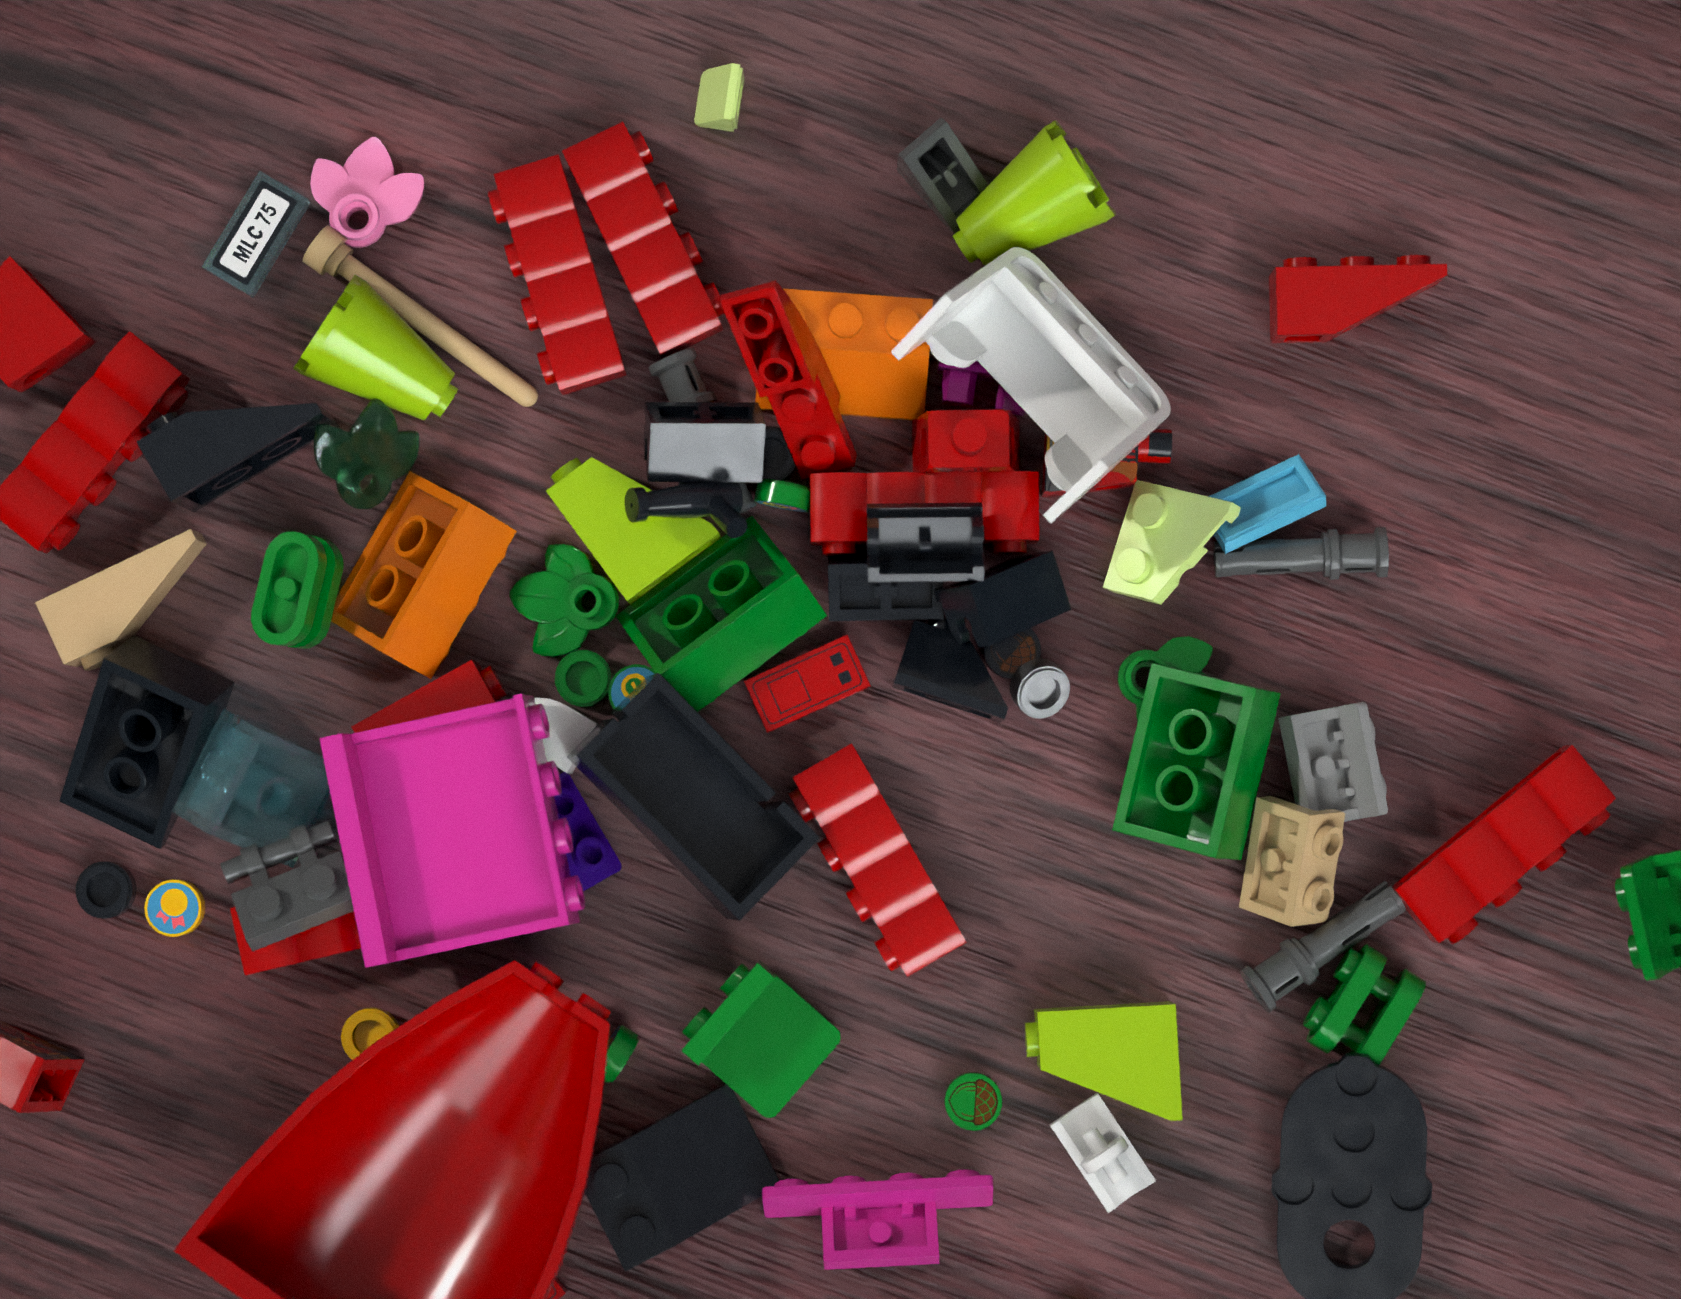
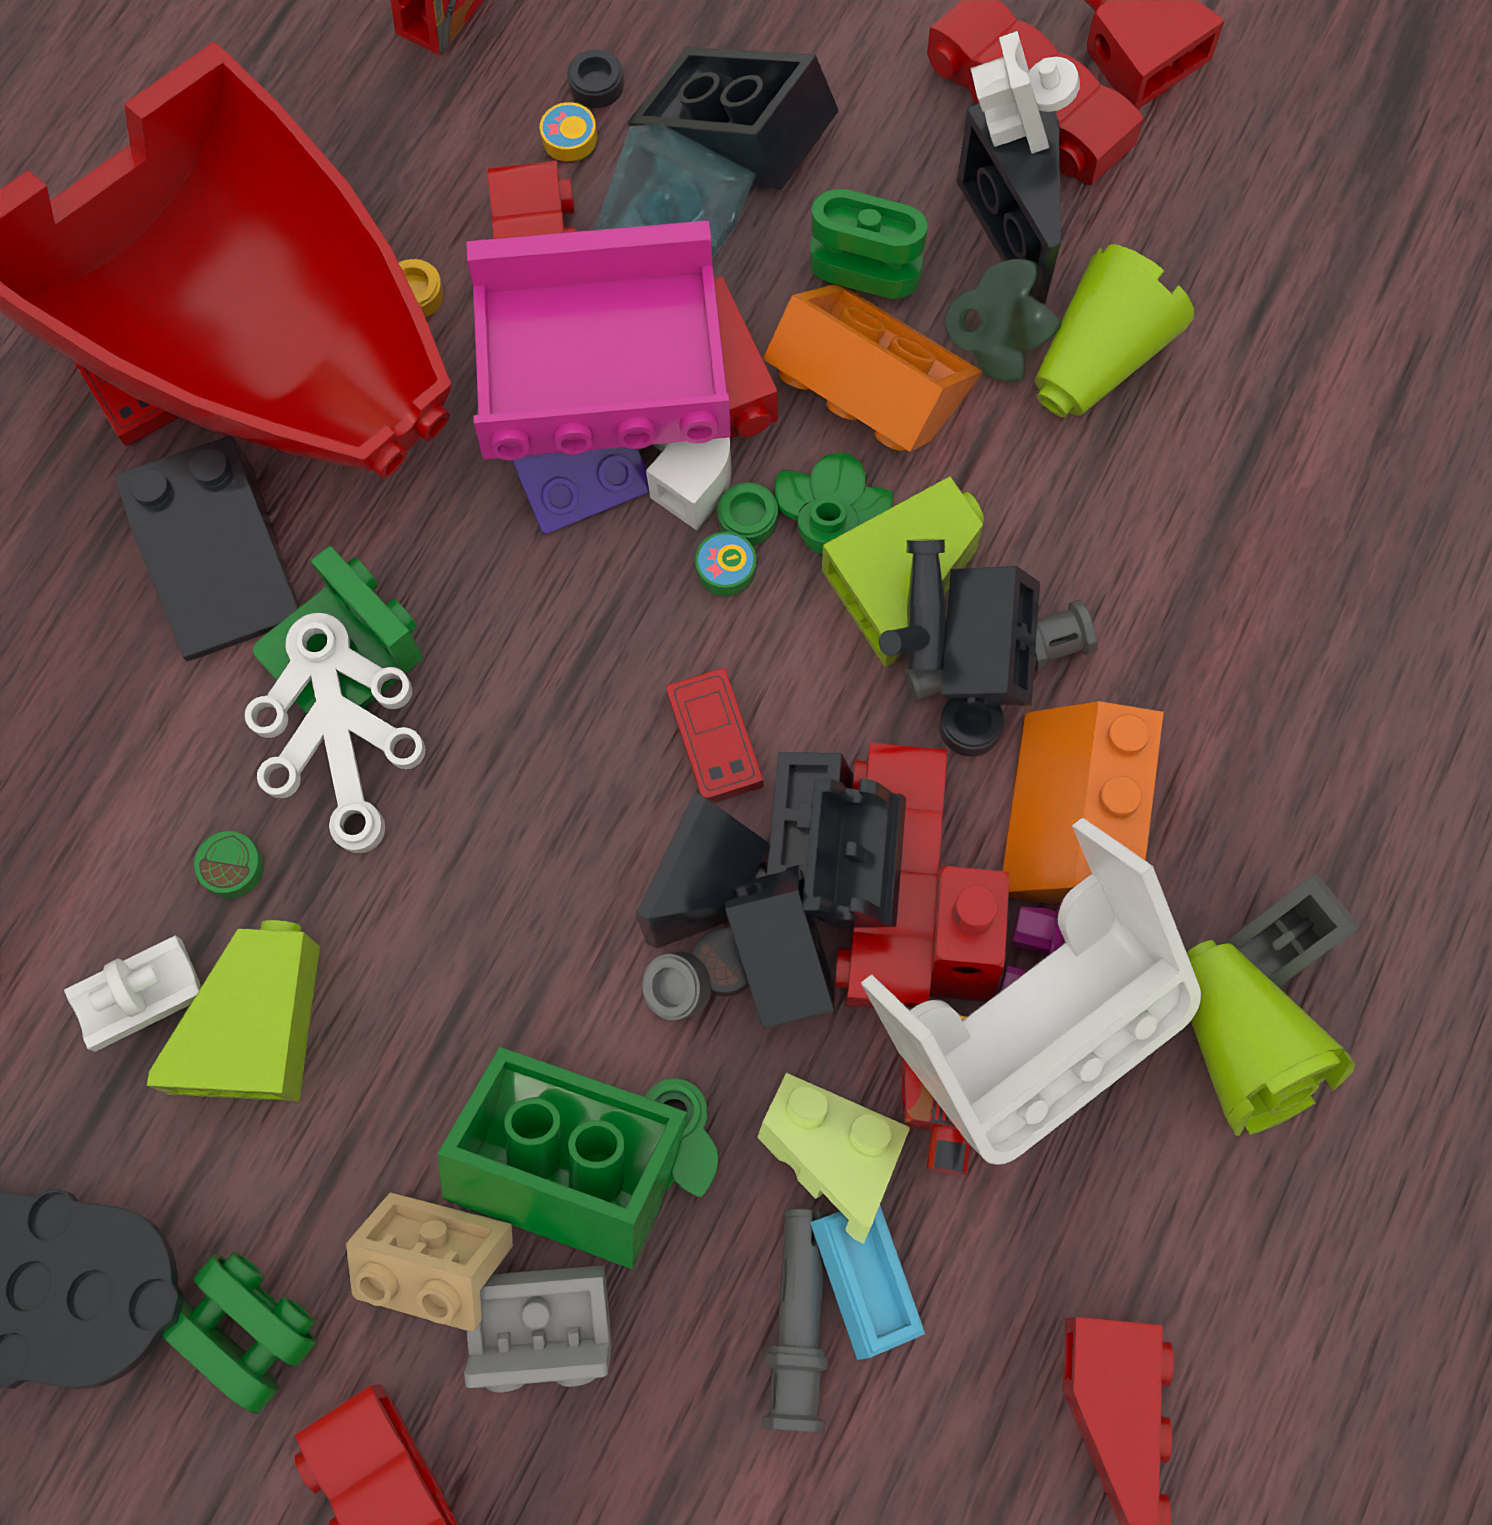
camera: 95 degrees right, 15 degrees down
(114, 603) = (877, 99): tan slope -> none
(180, 444) = (1015, 95): none -> white hips
(256, 234) = (1236, 251): tile -> none
(294, 899) = (552, 191): dark grey plate -> none
(332, 255) = (1214, 312): tan piece -> none
(365, 185) = (1282, 354): bright pink plate -> none
(558, 274) = (1184, 522): red brick -> none
(620, 1048) = (349, 502): green tile -> none
(643, 239) = (1219, 609): red brick -> none
(693, 797) = (600, 585): black piece -> none
(720, 97) = (1378, 711): yellowish green slope -> none
(721, 615) = (795, 649): green slope -> none
(783, 495) = (926, 721): green tile -> none
(792, 375) = (1071, 728): red slope -> none
(834, 1026) = (332, 720): none -> white plant
(878, 860) = (505, 787): red brick -> none
(879, 1220) = (114, 749): dark pink bracket -> none
(1300, 959) = (313, 1260): dark grey pin -> none

